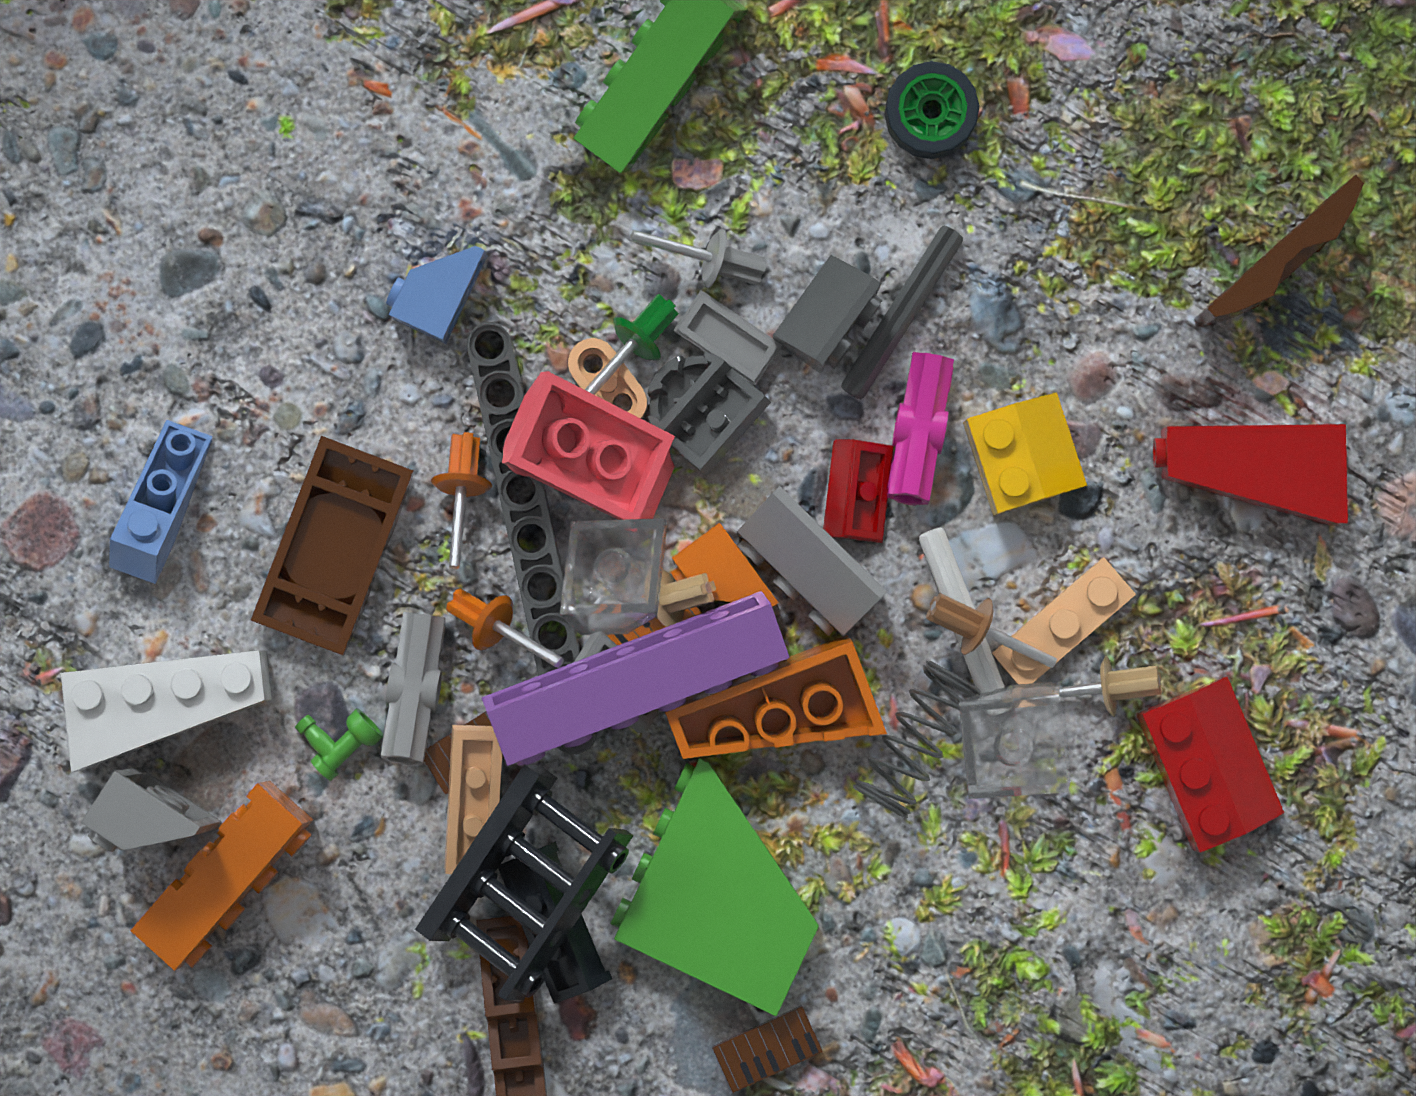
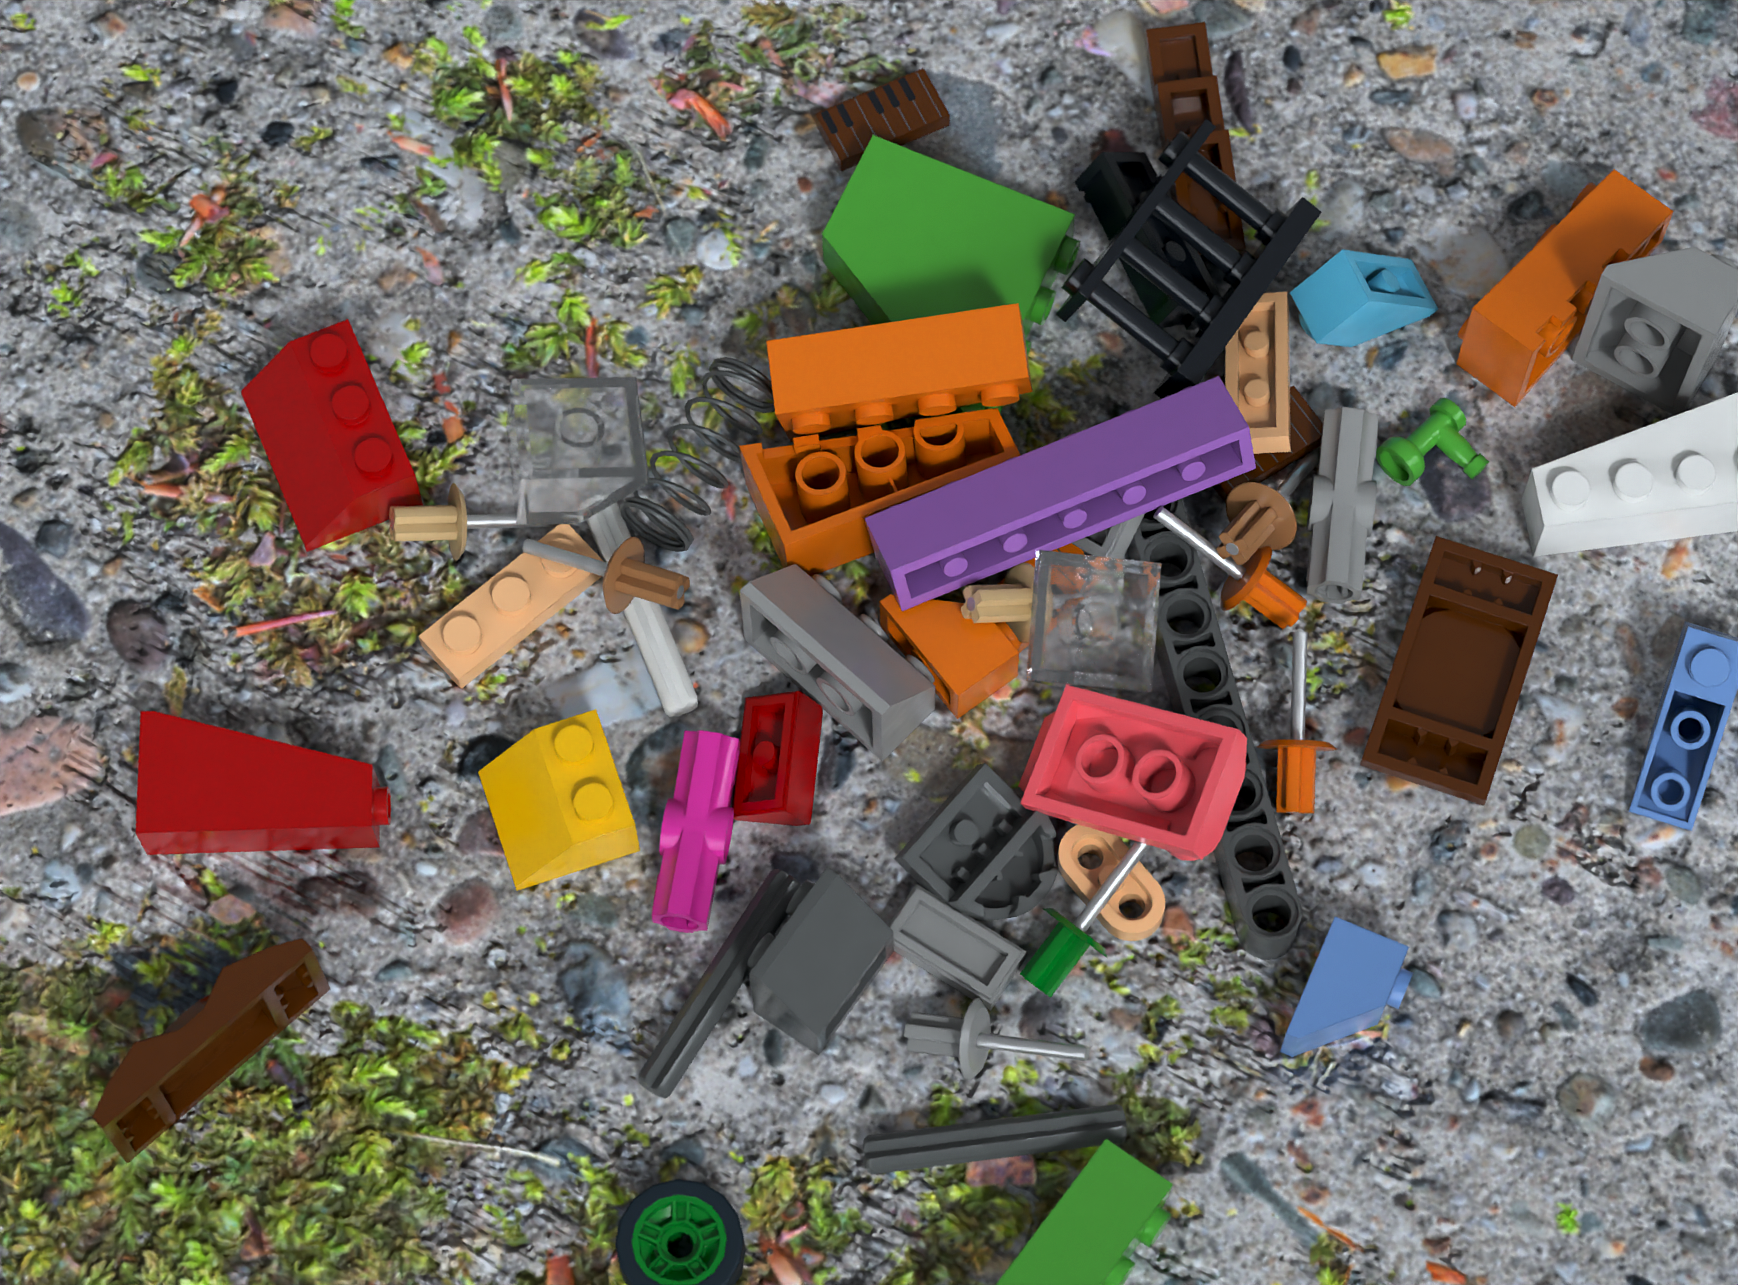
camera: 175 degrees right, 20 degrees down
(384, 868) = (1361, 298): none -> medium azure slope
(478, 671) = (1261, 515): none -> medium nougat piece
(701, 188) = (994, 1139): none -> dark grey axle
(760, 784) = (898, 370): none -> orange wedge

